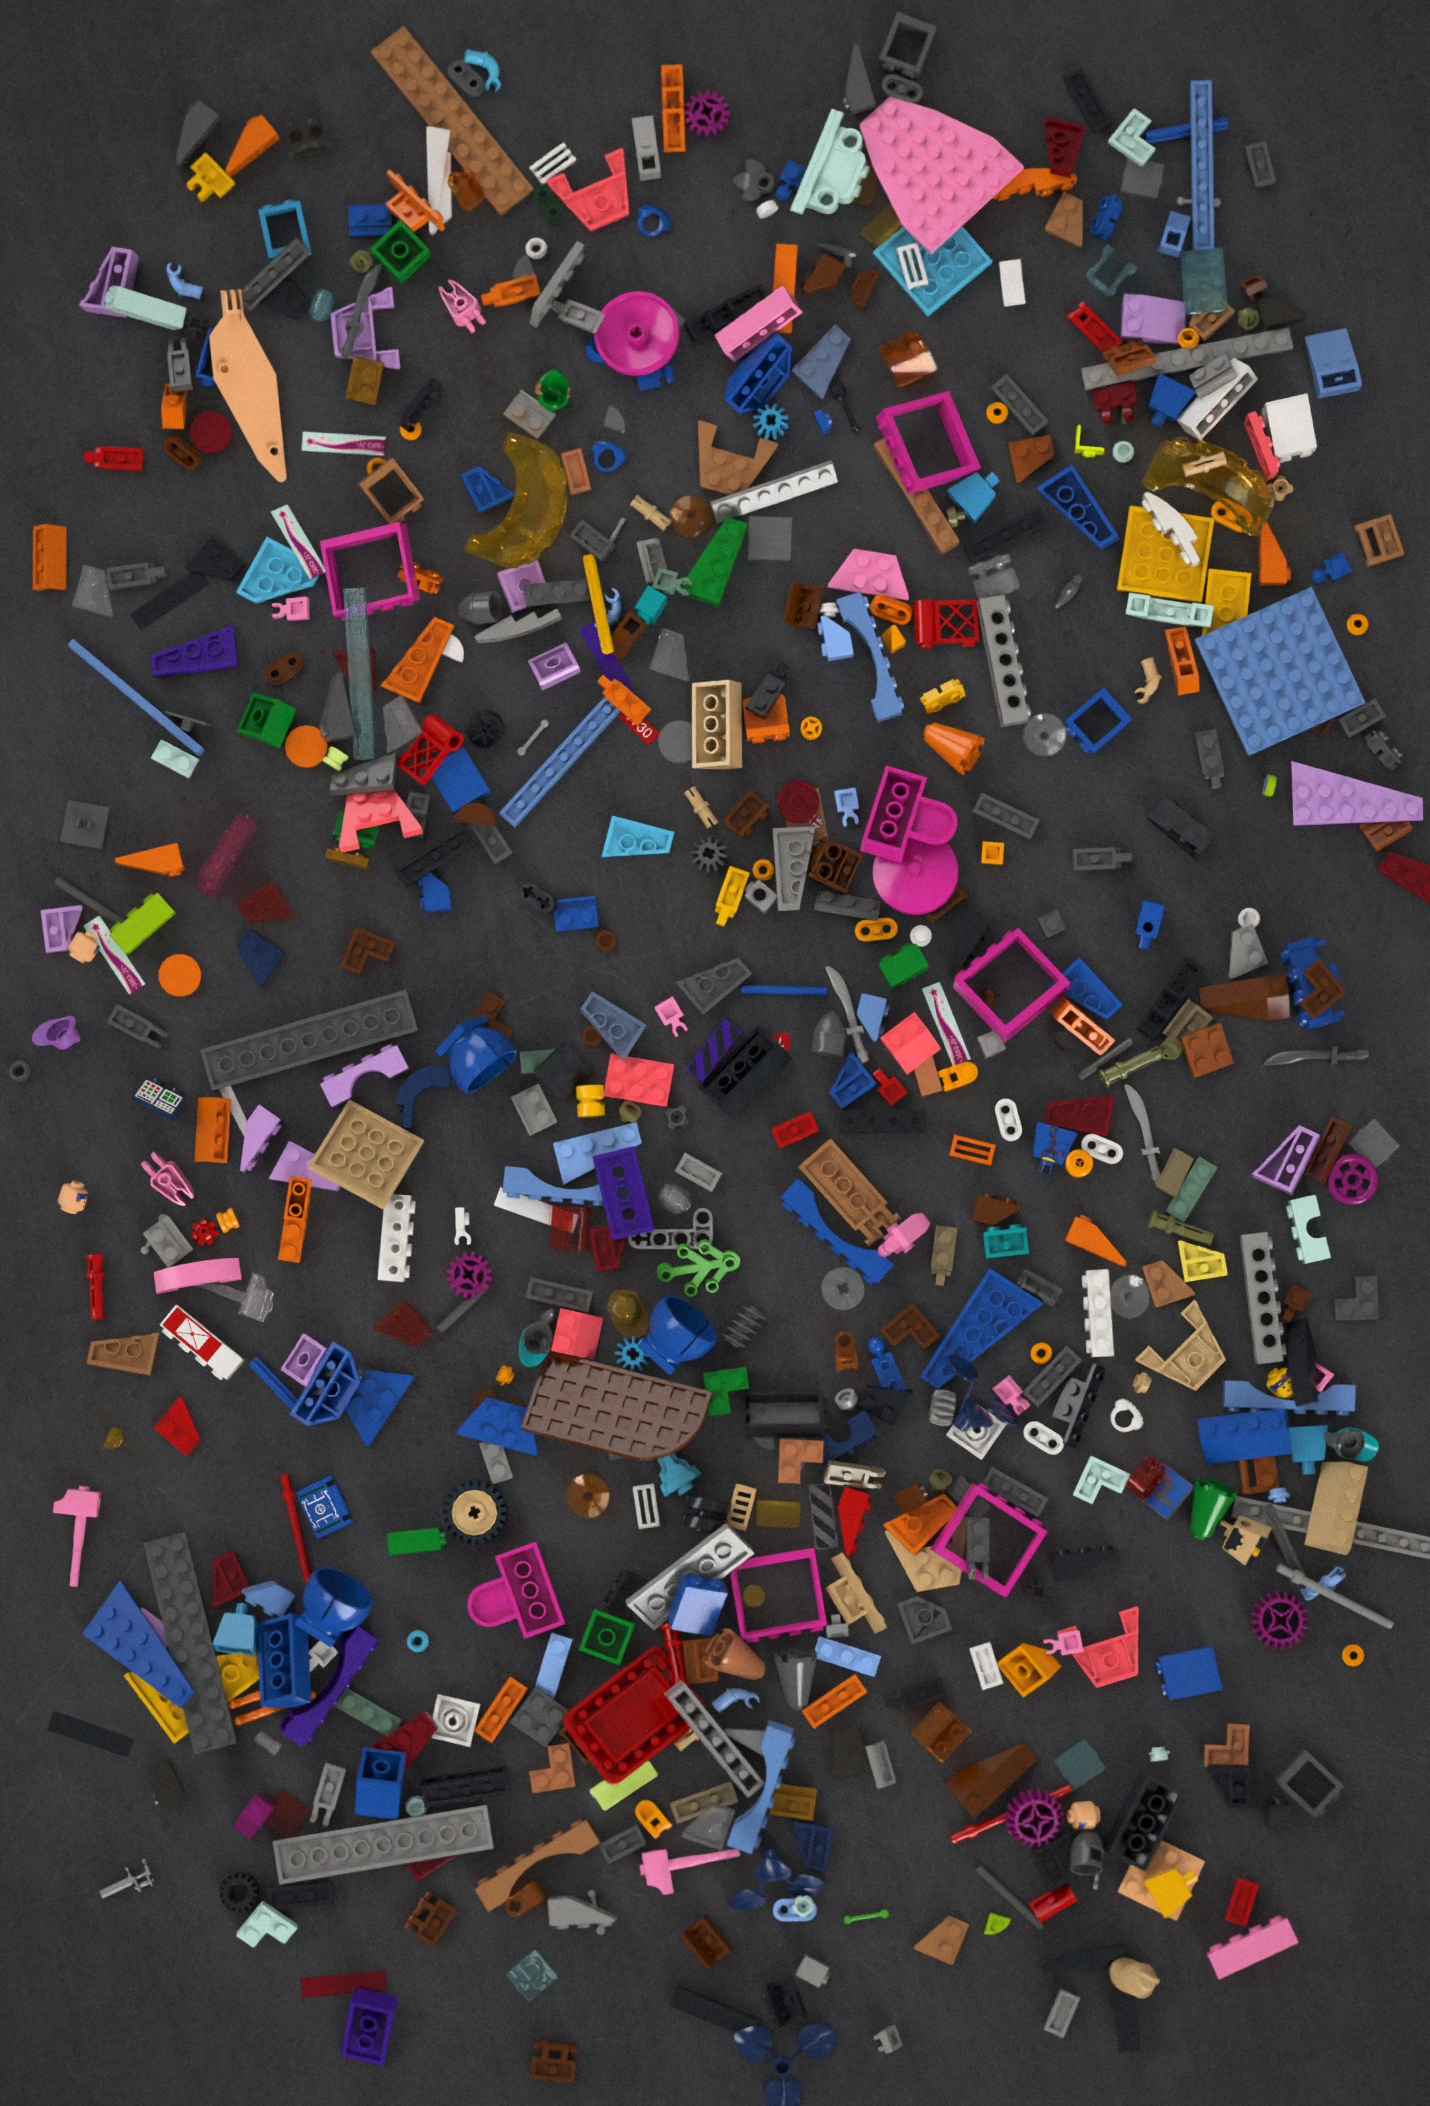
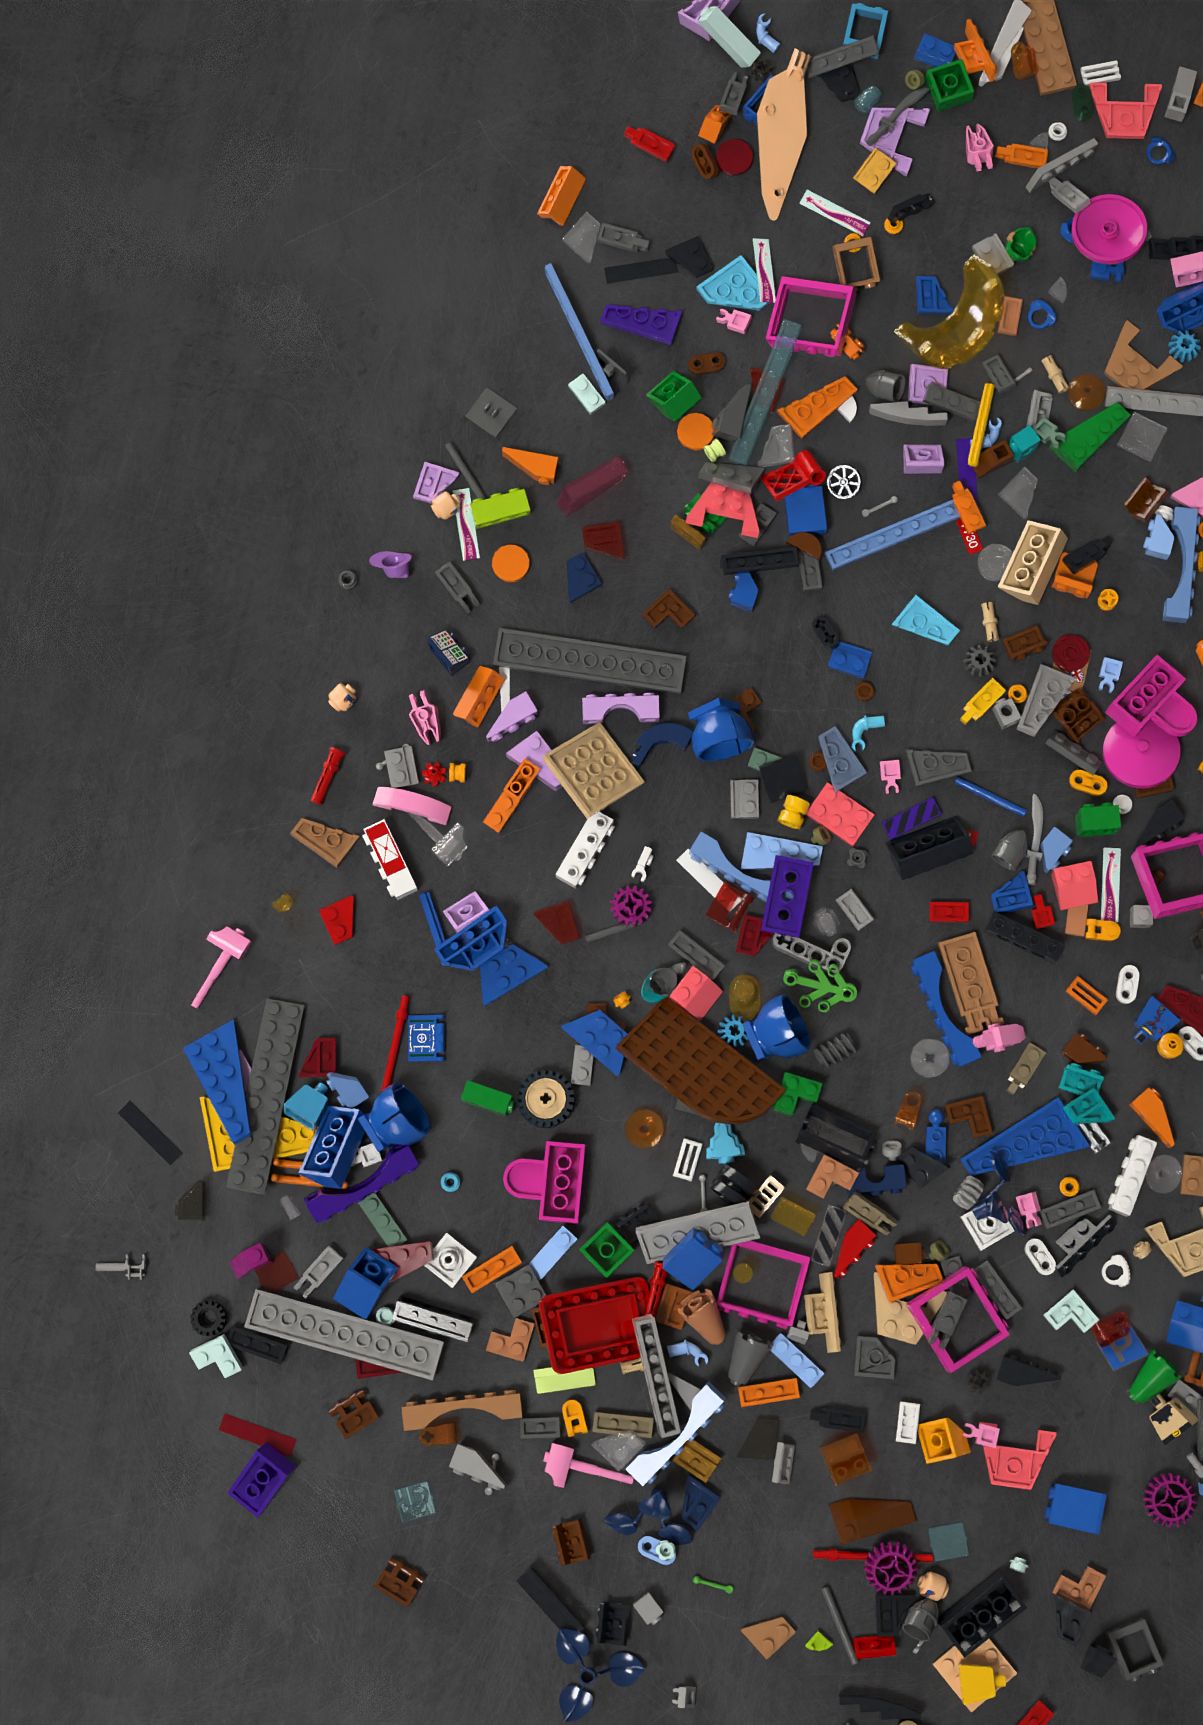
camera: 20 degrees right, 5 degrees down
(620, 976) = (863, 724): none -> medium azure piece
(670, 1518) = (702, 1178): none -> light grey hinge
(1024, 1267) = (1088, 1109): none -> teal wing

